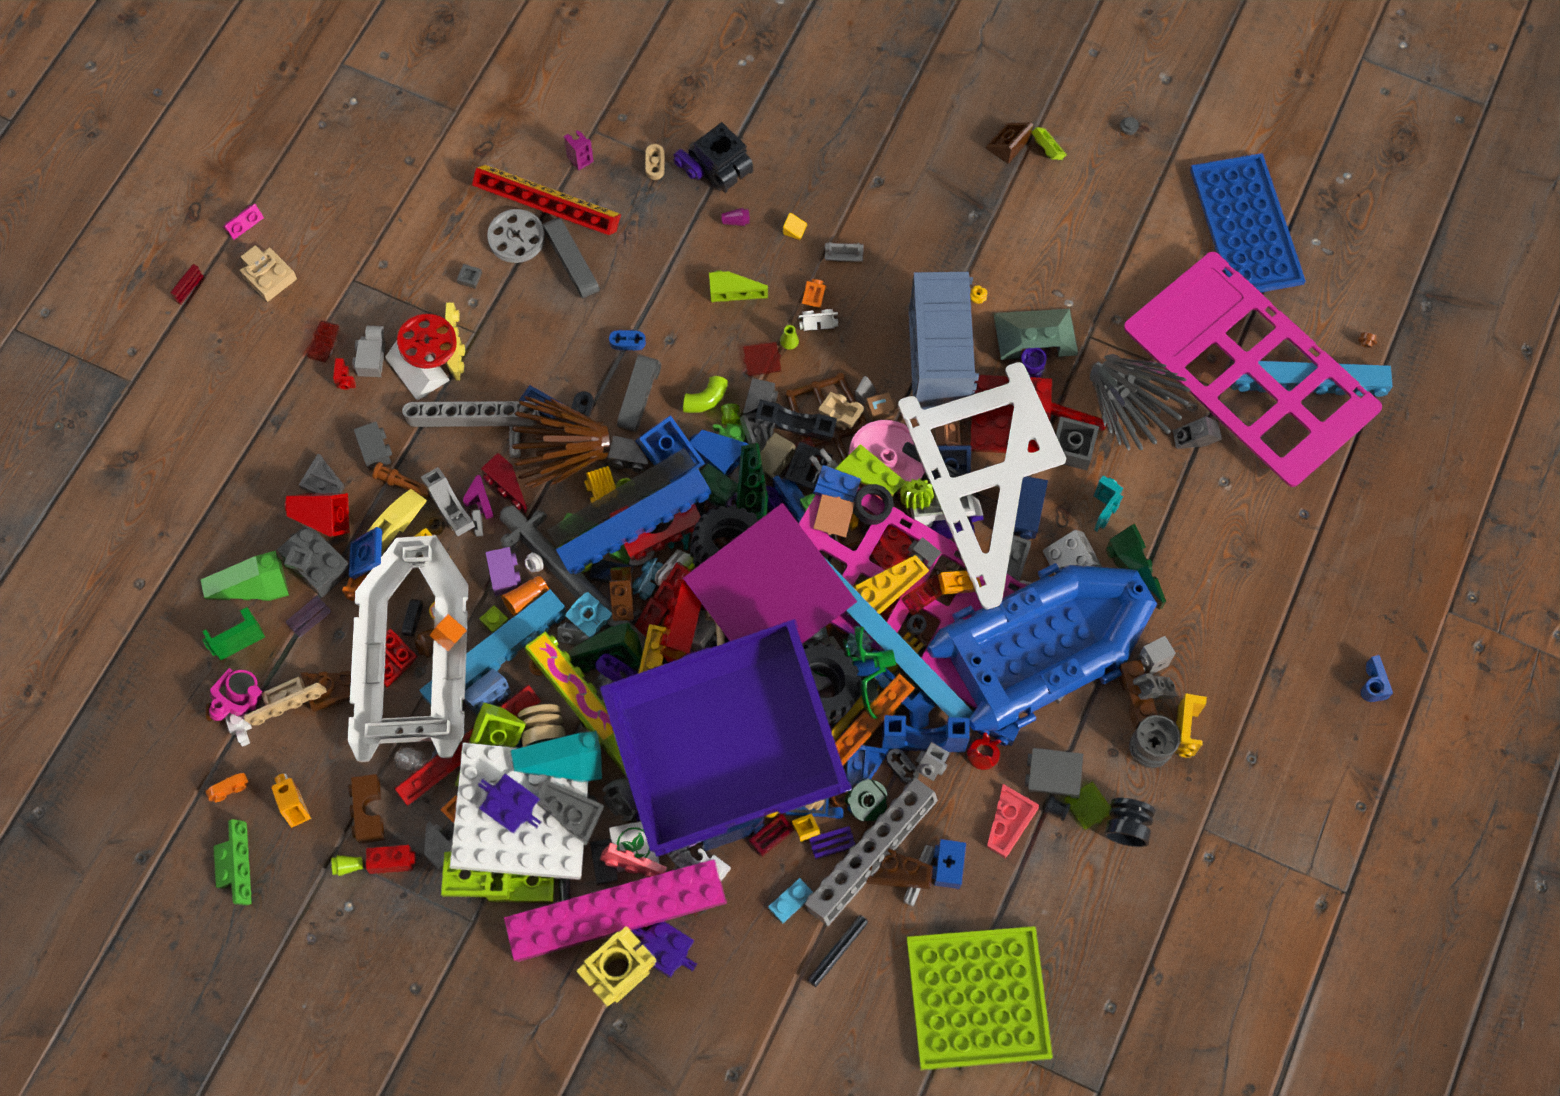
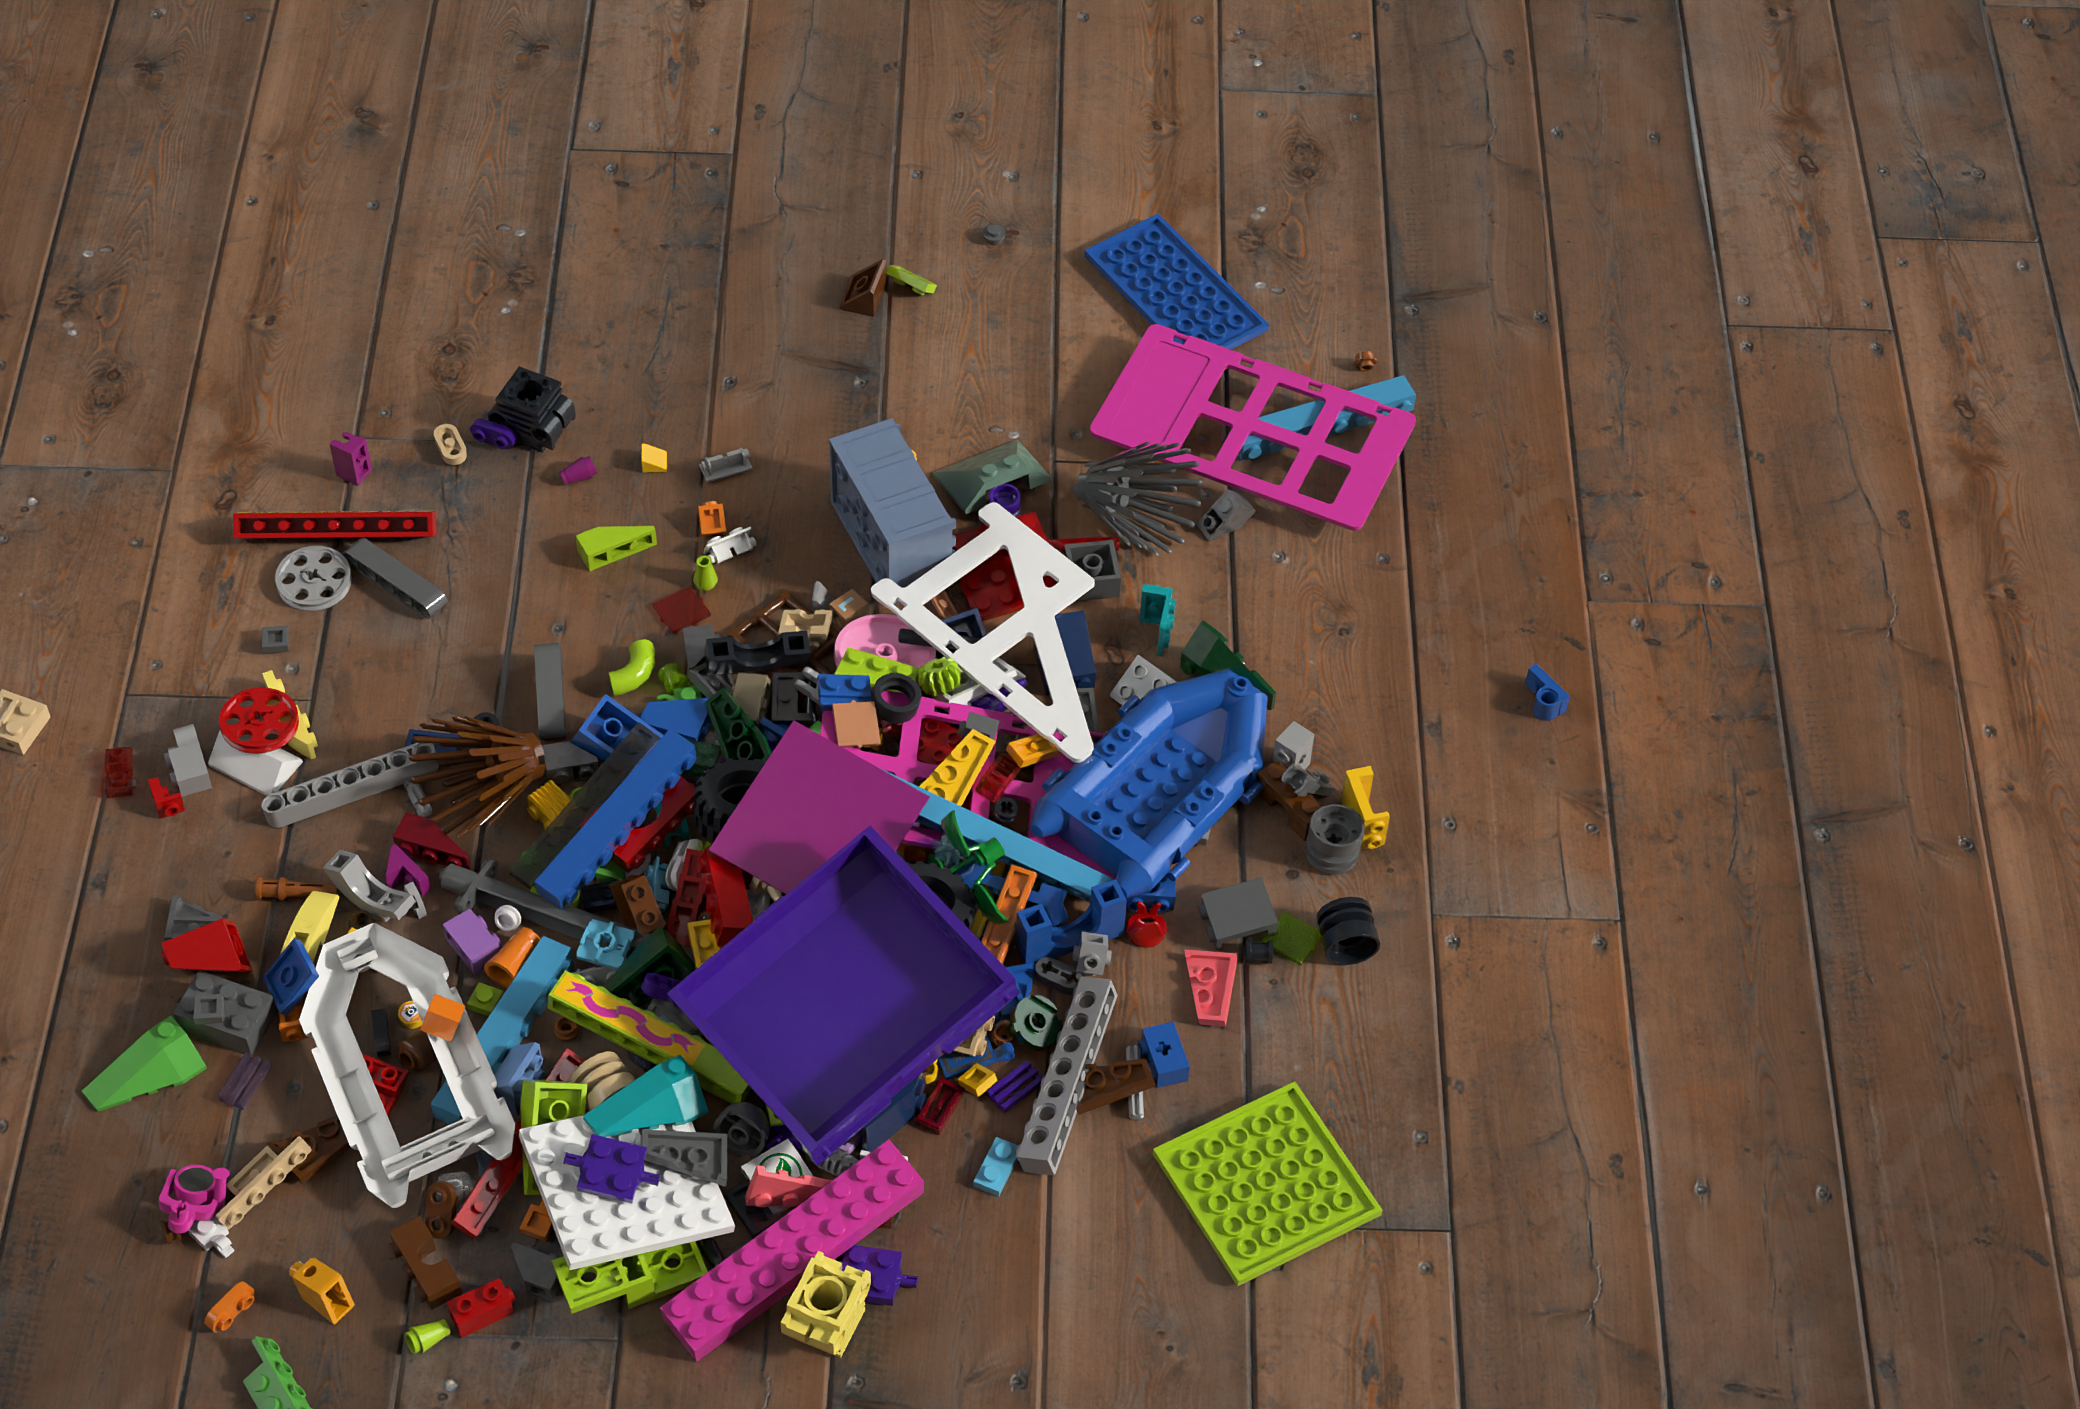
camera: 25 degrees left, 15 degrees down
(235, 637) = (163, 1133): green panel -> none
(372, 445) = (240, 861): dark grey brick -> none
(391, 775) = (442, 1210): none -> reddish brown plate
(627, 340) = (507, 643): blue beam -> none
(837, 951) = (1078, 1198): black axle -> none

